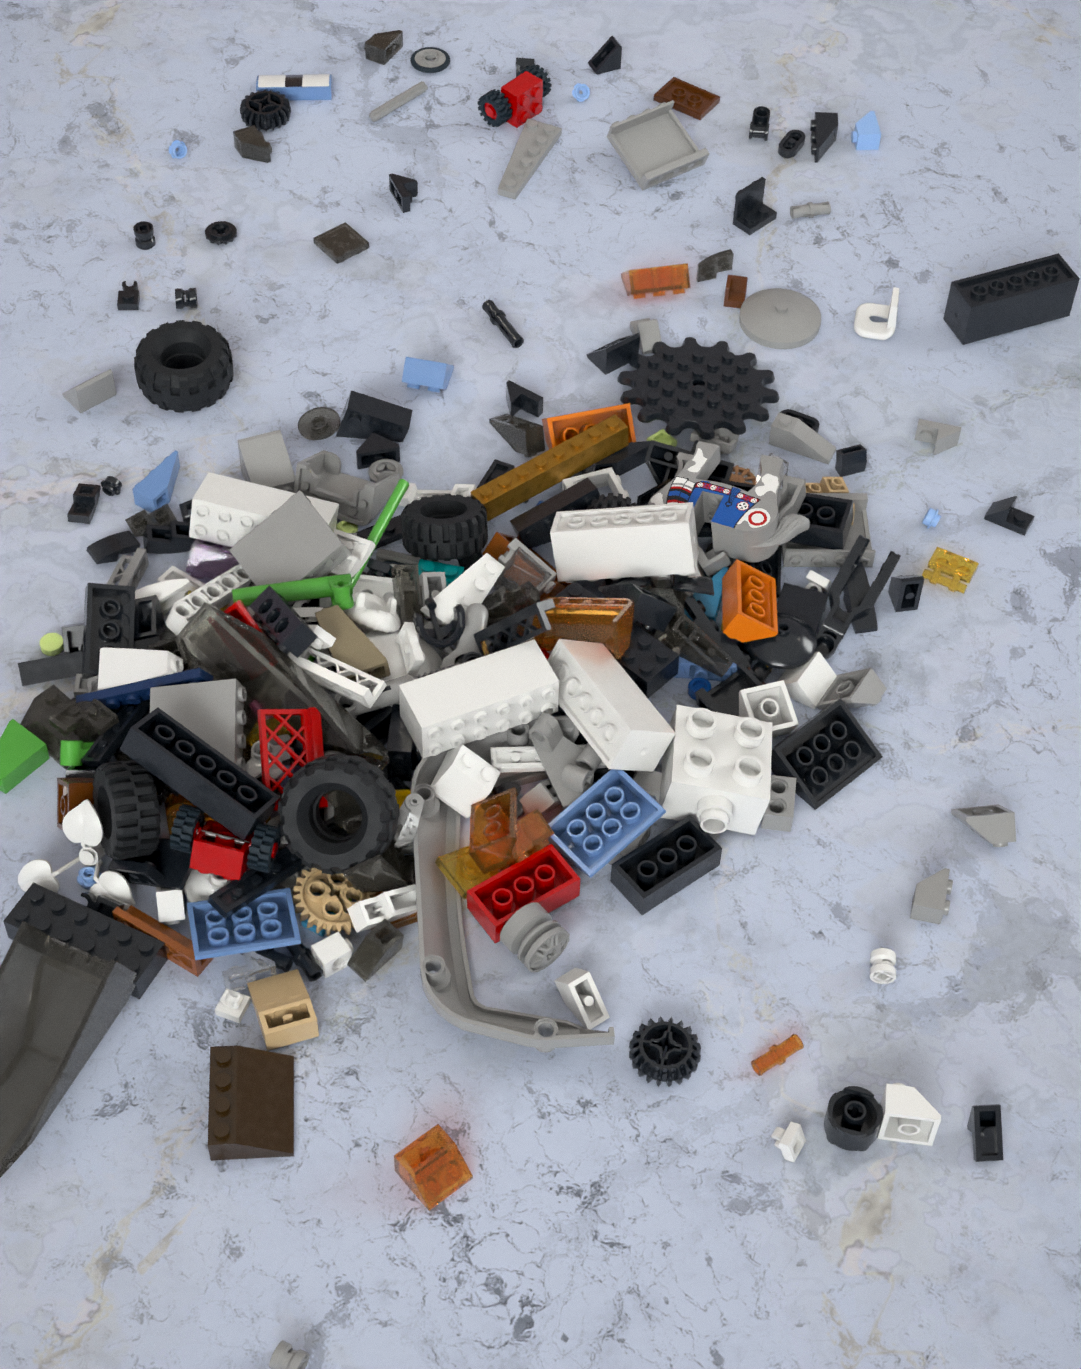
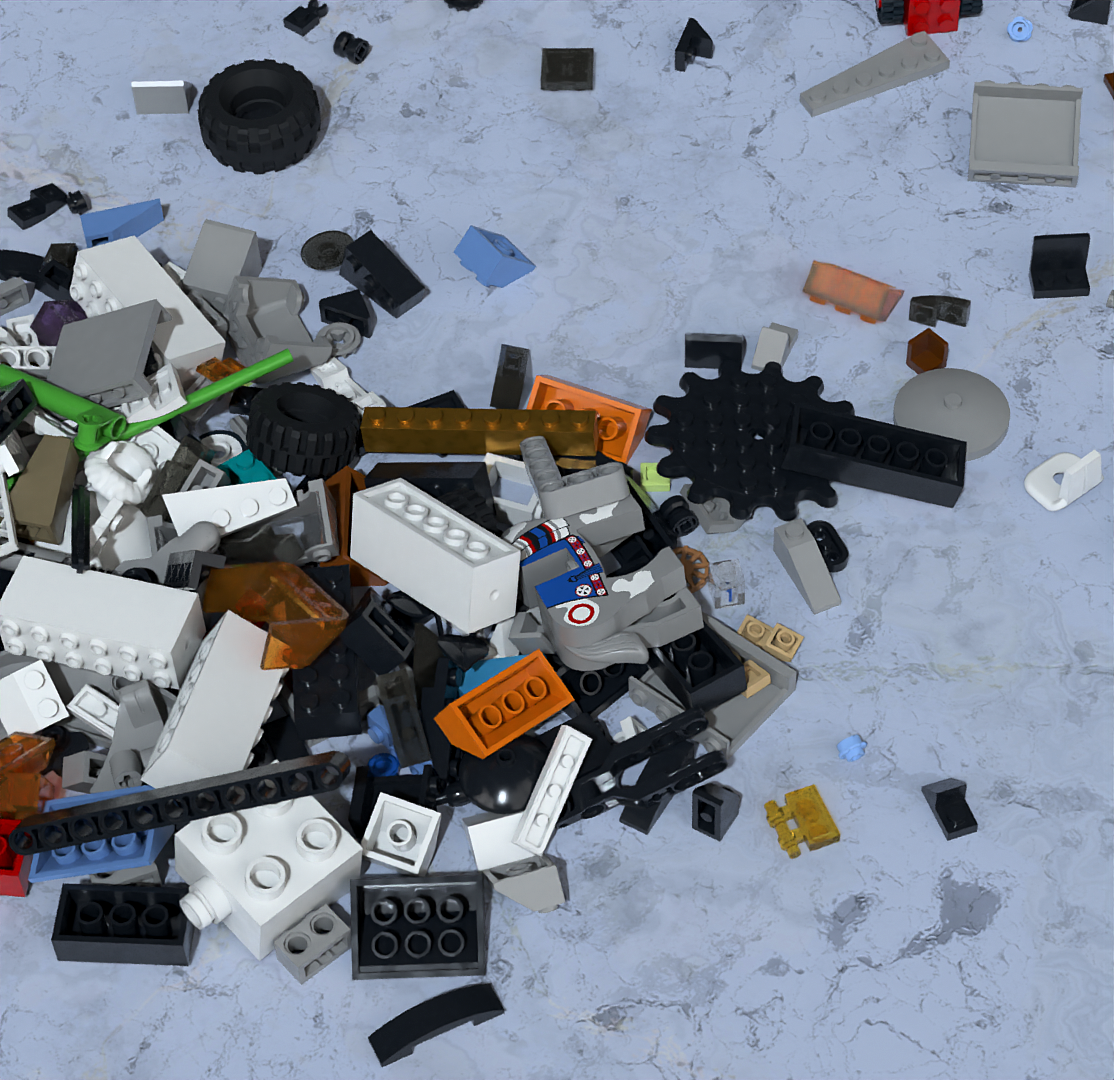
camera: 45 degrees right, 0 degrees up
(349, 525) = (217, 370): none -> clear orange slope
(410, 651) = (80, 530): none -> black axle
(437, 635) = (154, 534): black helmet -> none
(499, 319) = (634, 239): black pin -> none
(524, 399) = (552, 340): black slope -> none
(647, 765) = (189, 794): none -> black beam
(650, 465) = (573, 492): none -> light grey beam
(779, 356) = (874, 455): none -> black brick
(821, 632) = (551, 790): none -> white tile
(851, 460) = (832, 624): black piece -> none
(886, 800) = (432, 1019): none -> black slope
(940, 434) = (971, 659): light grey slope -> none

